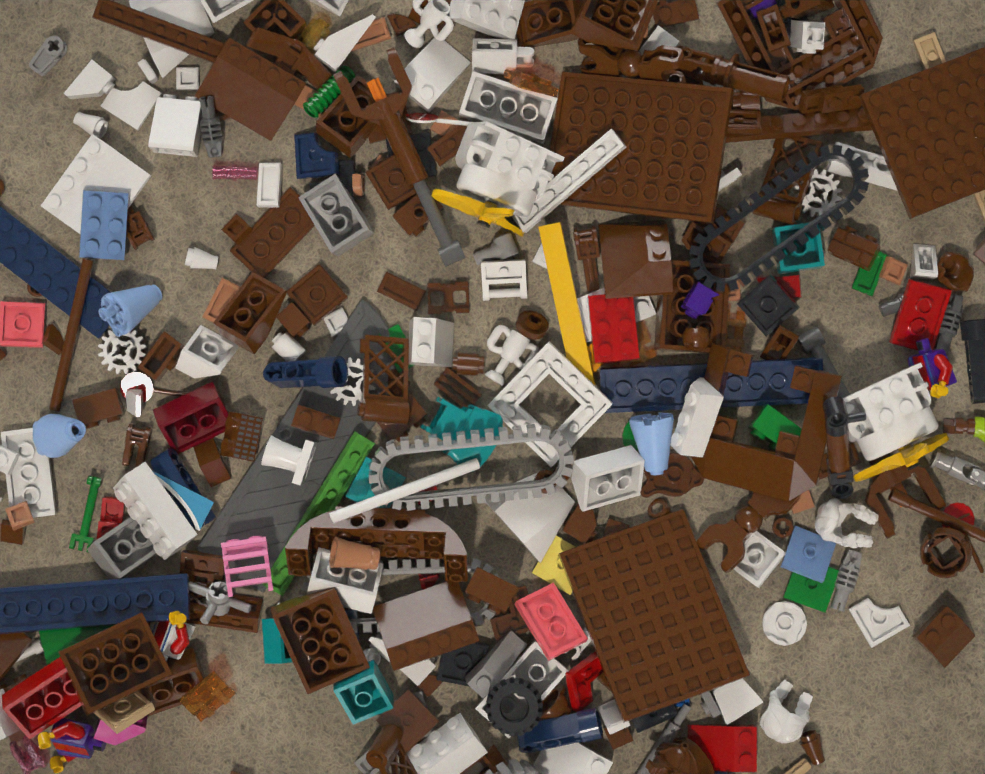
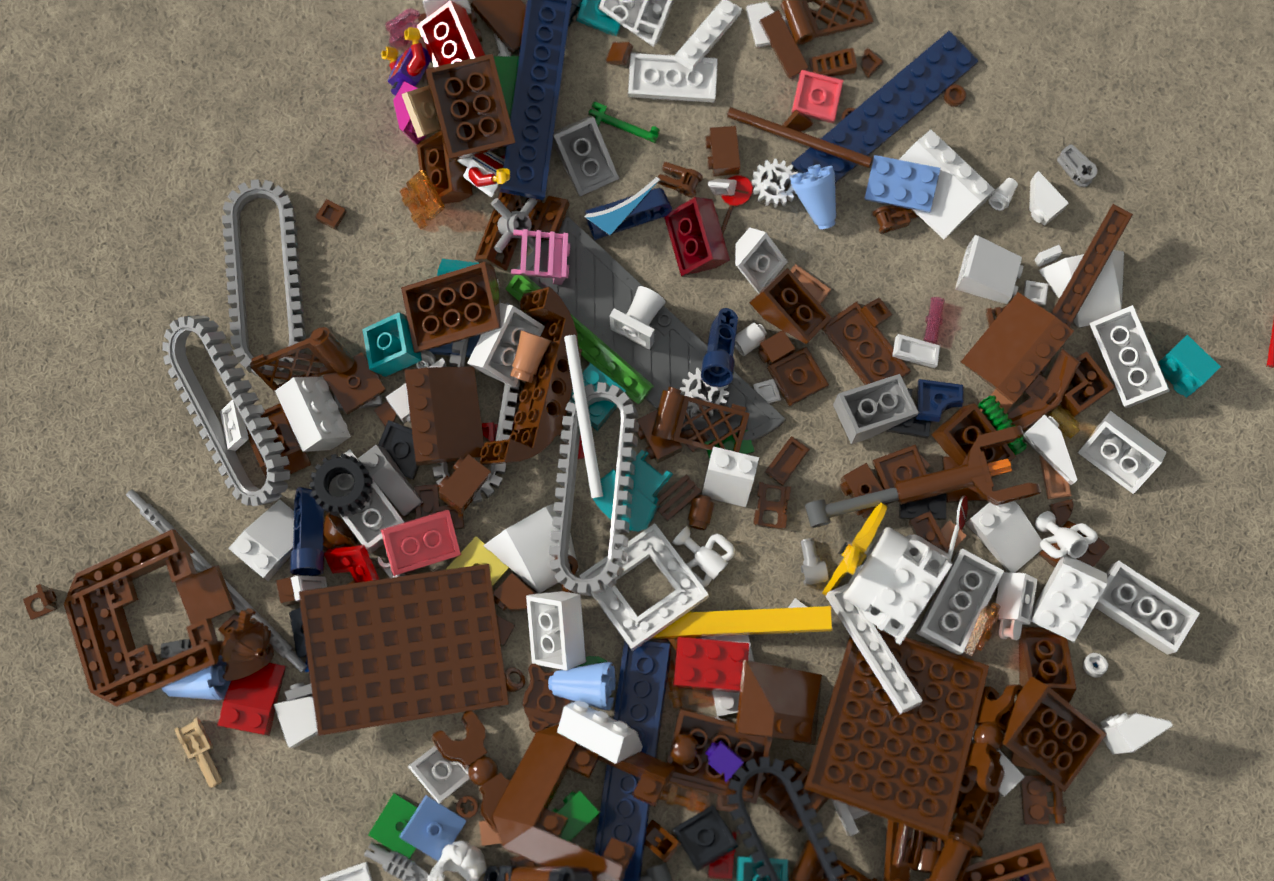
camera: 95 degrees right, 10 degrees down
(19, 515) = (633, 59): nougat tile -> none
(57, 434) = (704, 98): light blue cone -> none
(111, 515) = (618, 146): red slope -> none
(132, 105) = (1016, 235): white tile -> none
(154, 511) = (612, 180): white brick -> none
(161, 357) = (762, 215): reddish brown brick -> none
(200, 259) = (853, 270): white cone -> none
(210, 128) = (983, 303): dark grey hinge -> none
(211, 463) = (649, 246): reddish brown slope -> none
(241, 436) = (669, 276): reddish brown brick -> none
(315, 422) = (670, 349): reddish brown brick -> none
(358, 184) = (903, 437): nougat tile -> none
(504, 272) = (788, 565): white plate -> none
(532, 324) = (729, 584): reddish brown plate -> none
(587, 250) = (795, 657): reddish brown connector -> none
(779, 722) = (264, 758): white hair -> none
(782, 629) = (372, 784): white tile -> none
(812, 746) = (233, 792): reddish brown cone -> none

